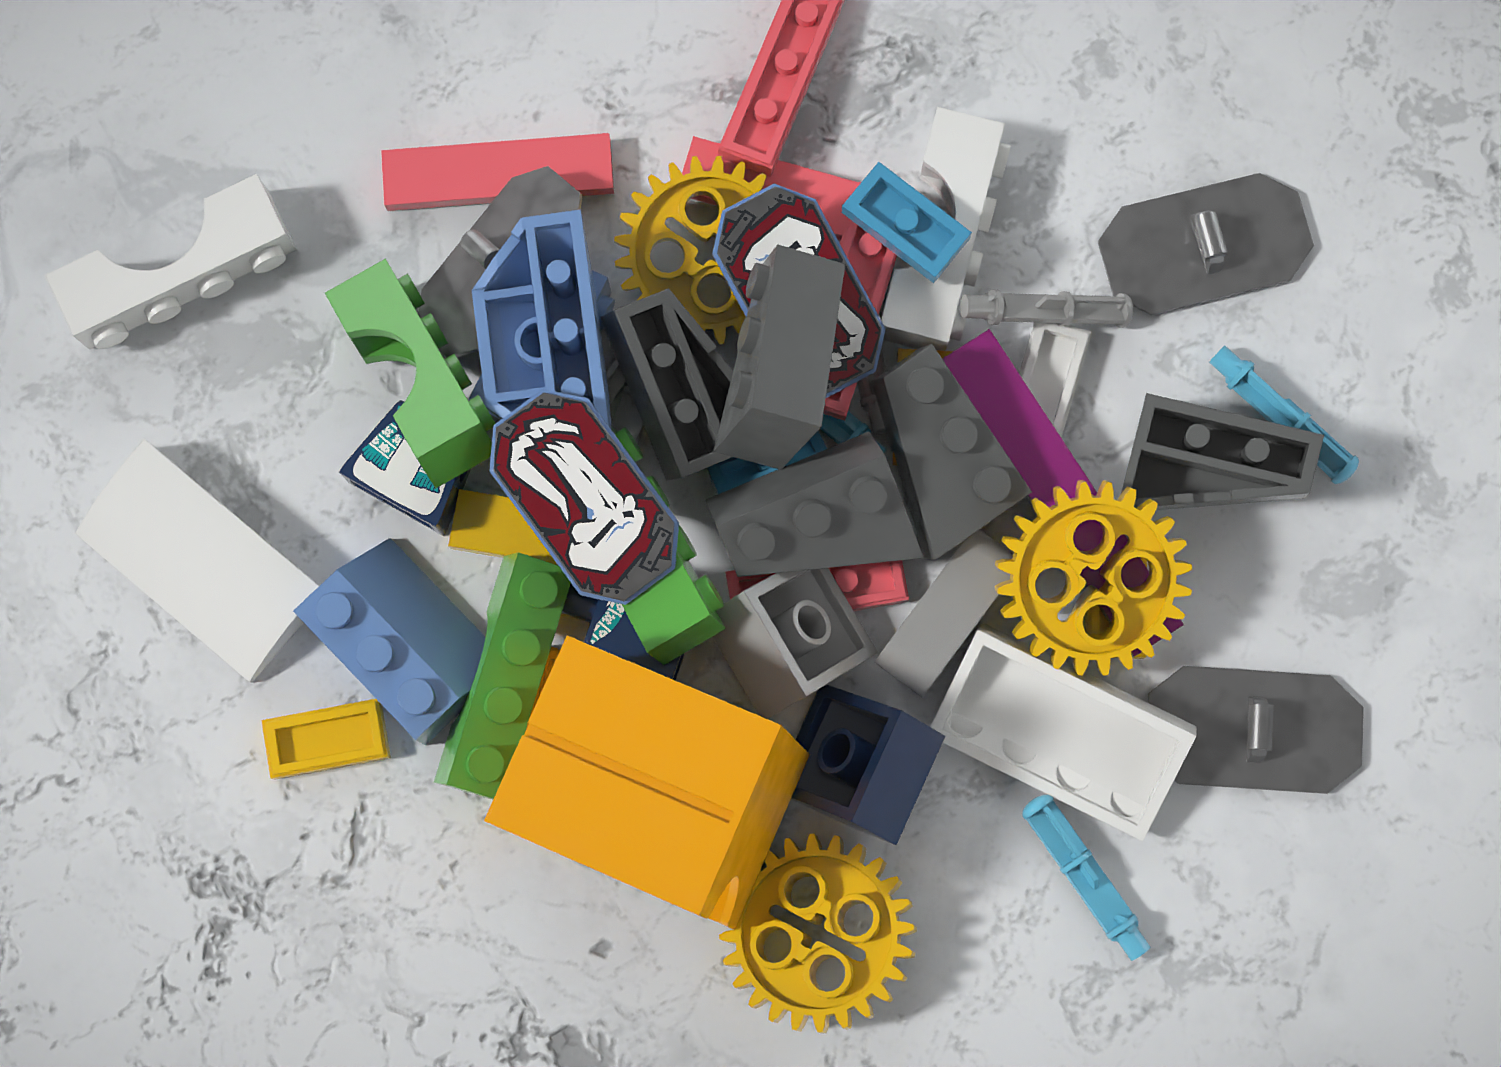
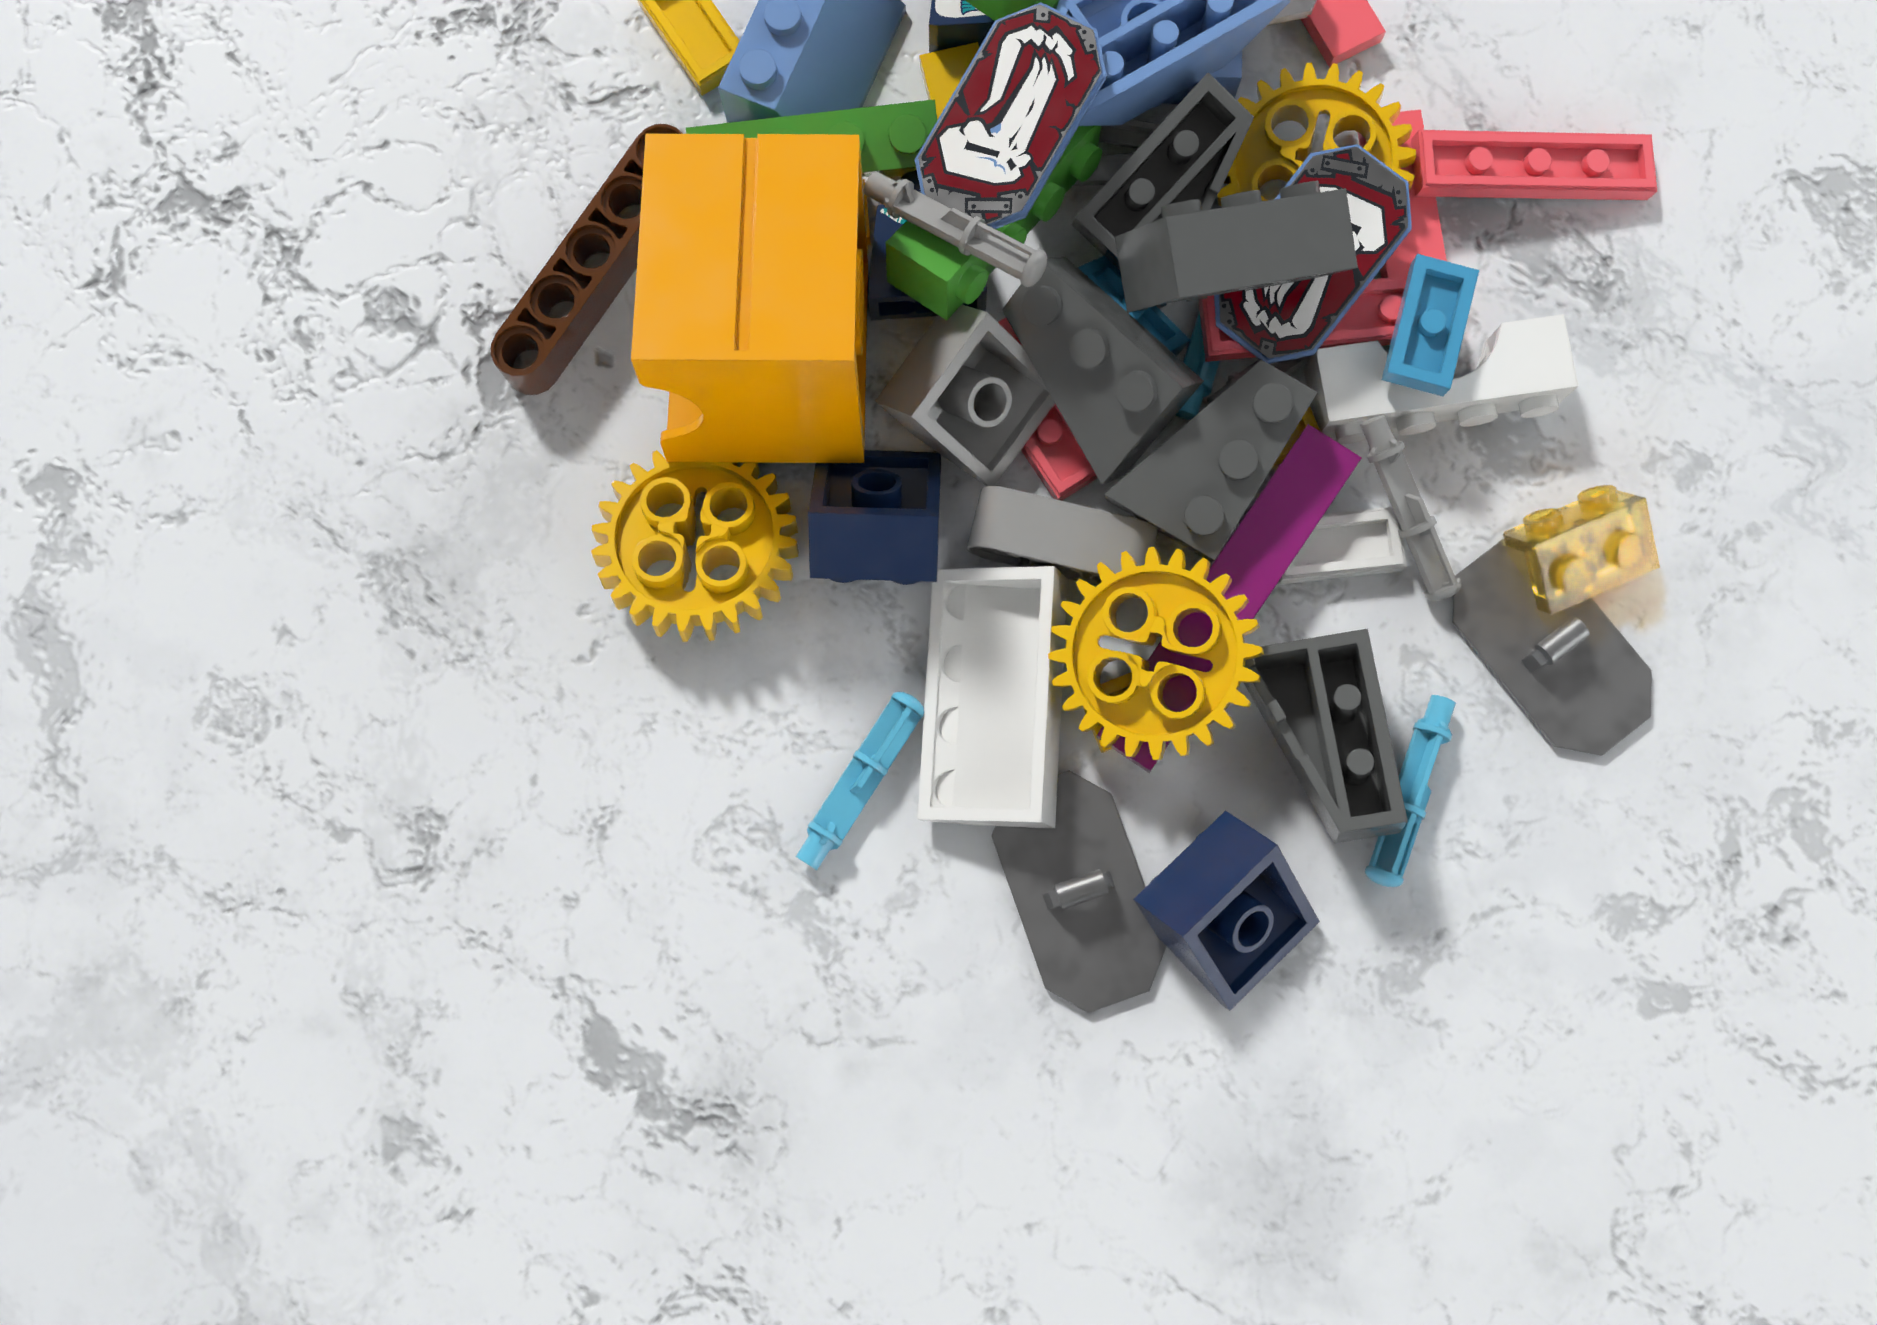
camera: 65 degrees right, 0 degrees up
(489, 902) = (567, 280): none -> reddish brown beam
(667, 585) = (963, 231): none -> light grey piece
(1136, 179) = (1585, 546): none -> clear yellow bracket
(1323, 611) = (1228, 908): none -> dark blue slope

